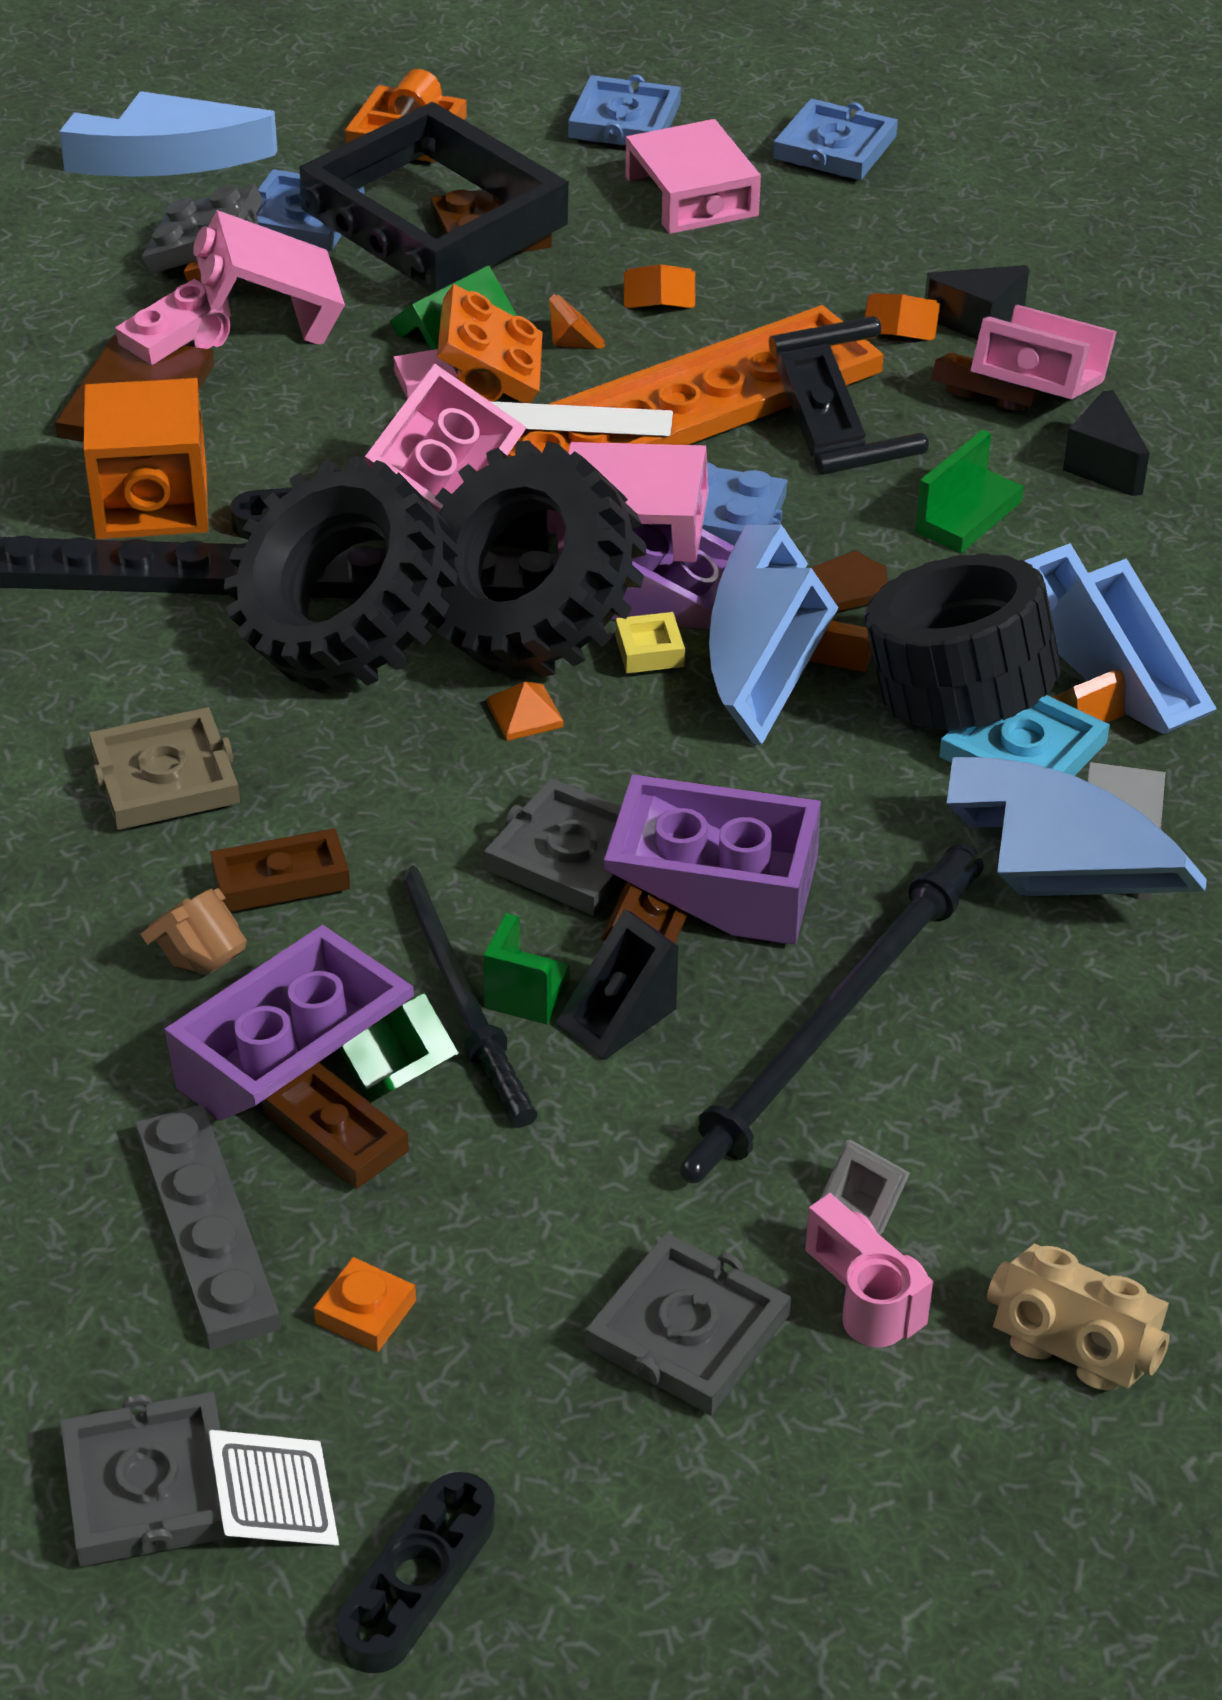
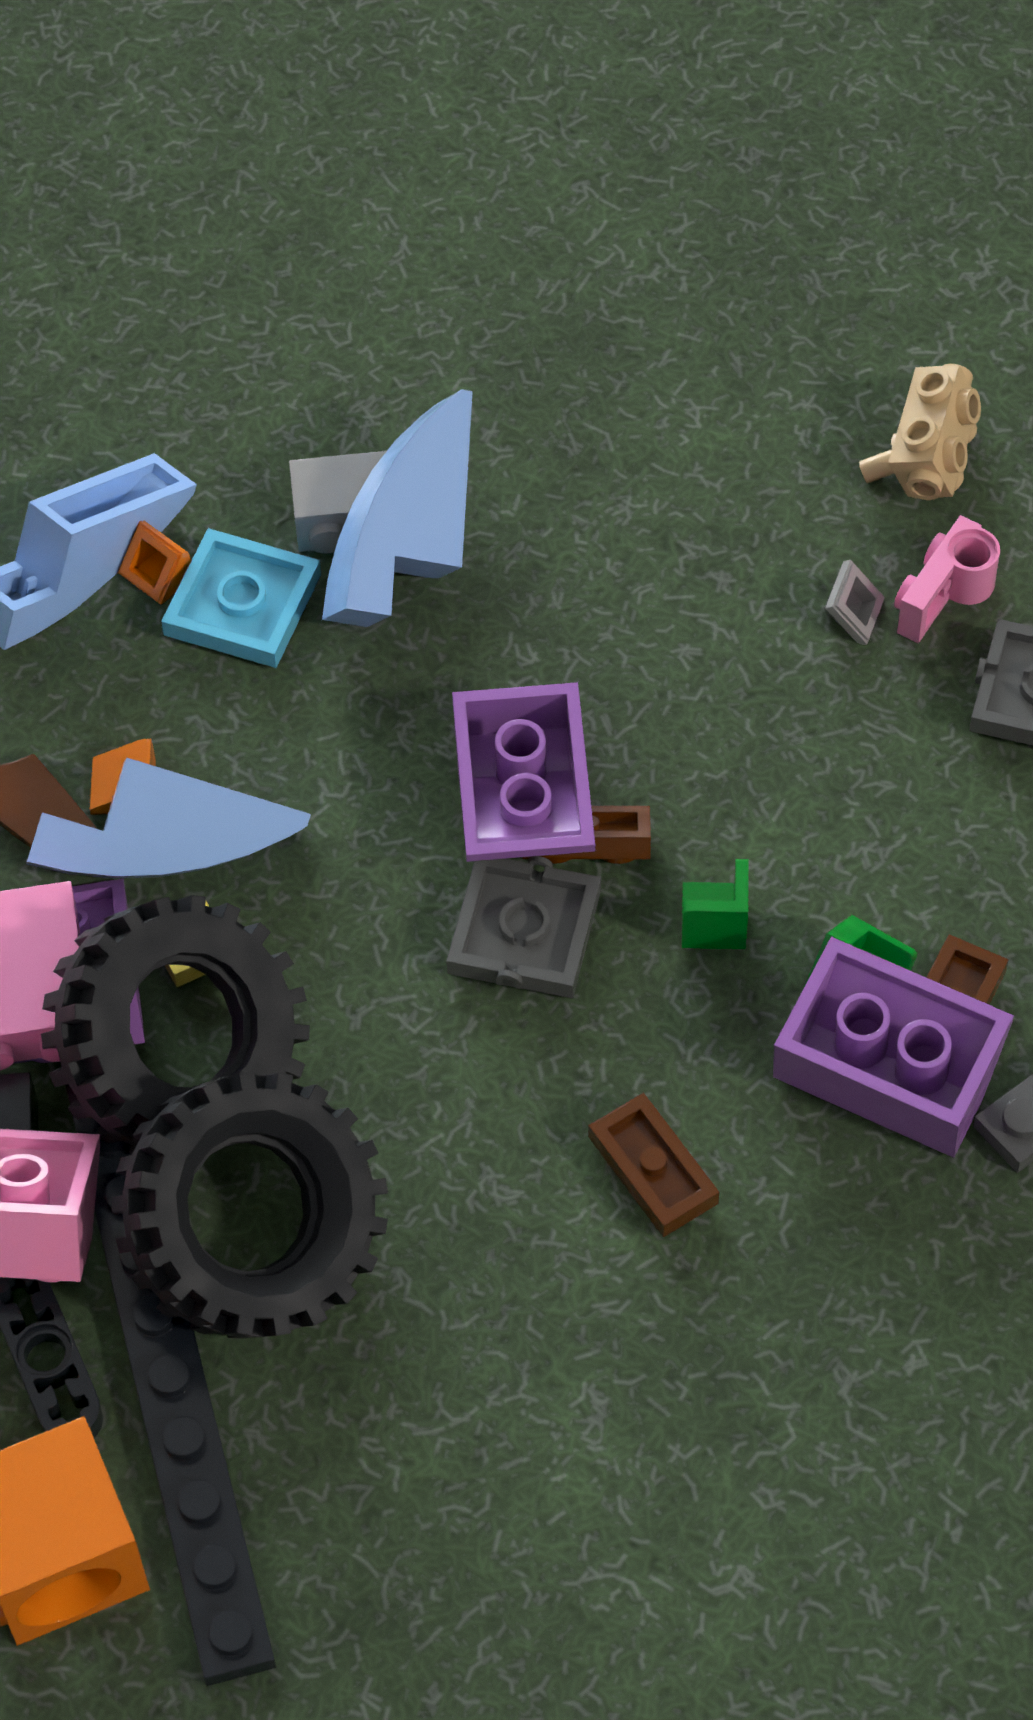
camera: 105 degrees left, 15 degrees up
(164, 768) = (543, 1330): dark tan plate -> none
(198, 933) = (775, 1195): medium nougat piece -> none
(486, 1042) = (802, 921): black sword -> none
(524, 710) = (331, 1038): orange slope -> none
(624, 988) = (708, 822): black slope -> none
(932, 897) = (489, 626): black bar -> none
(963, 641) = (116, 585): black tyre -> none

